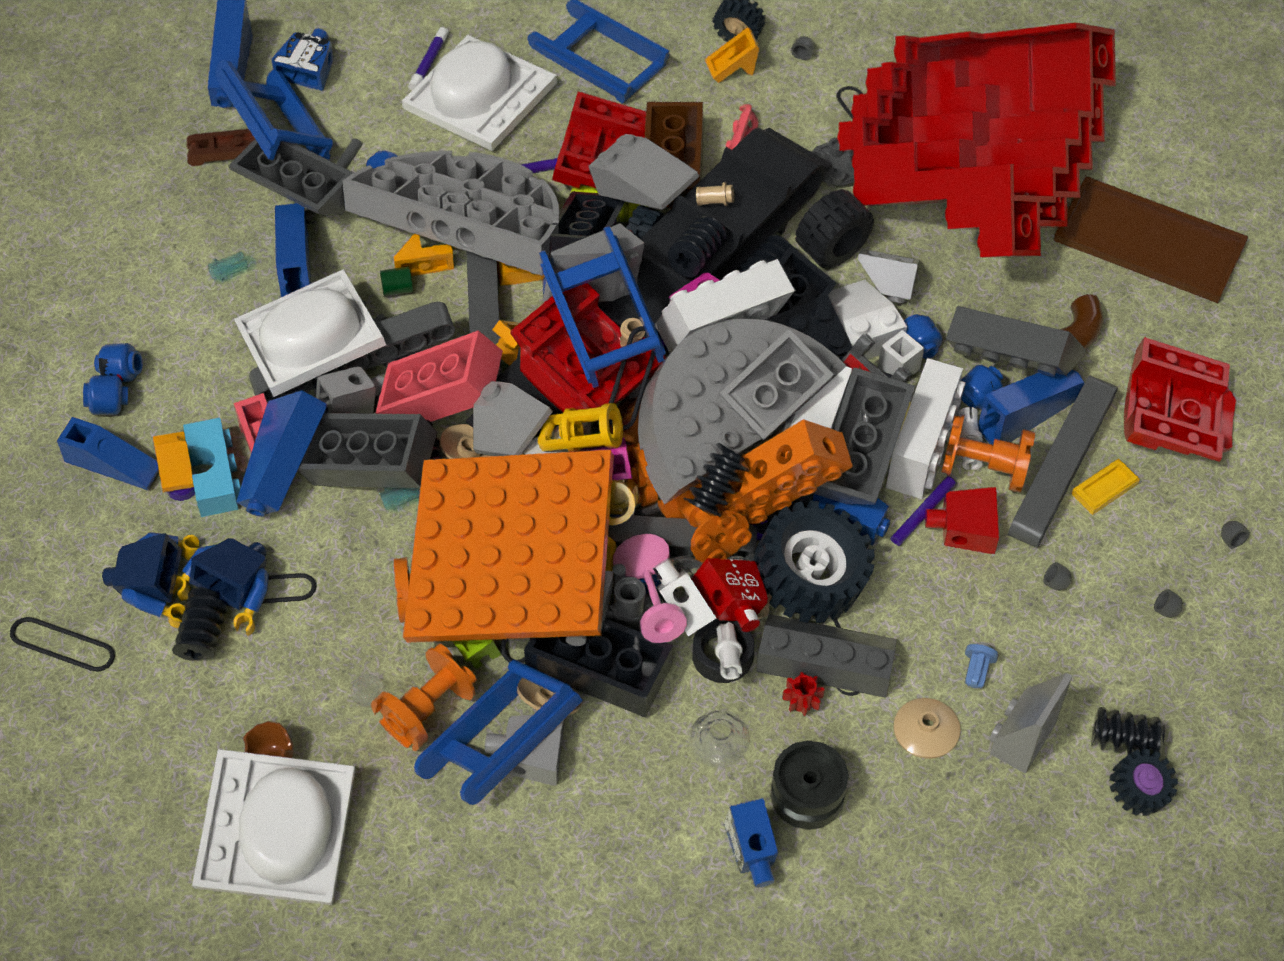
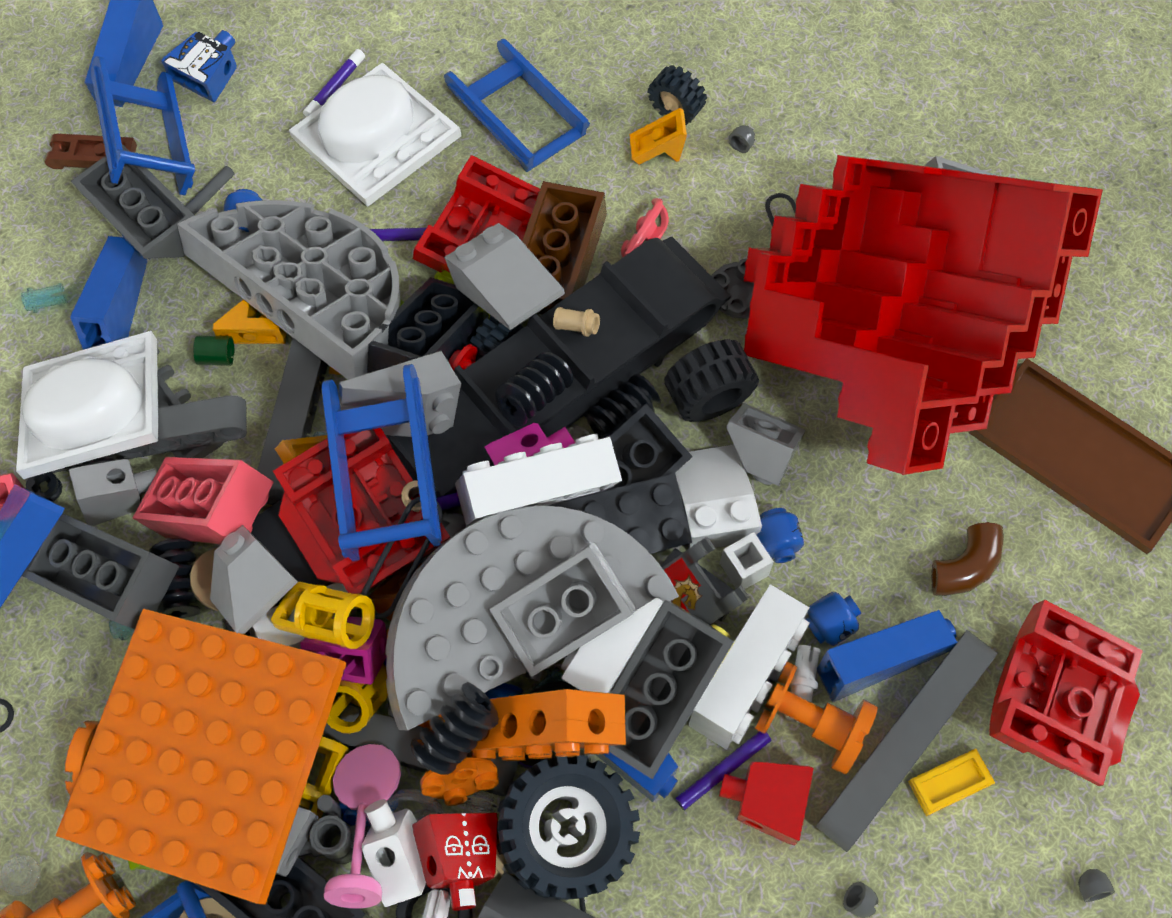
camera: 15 degrees right, 10 degrees up
(1014, 341) = (884, 577): dark grey slope -> none

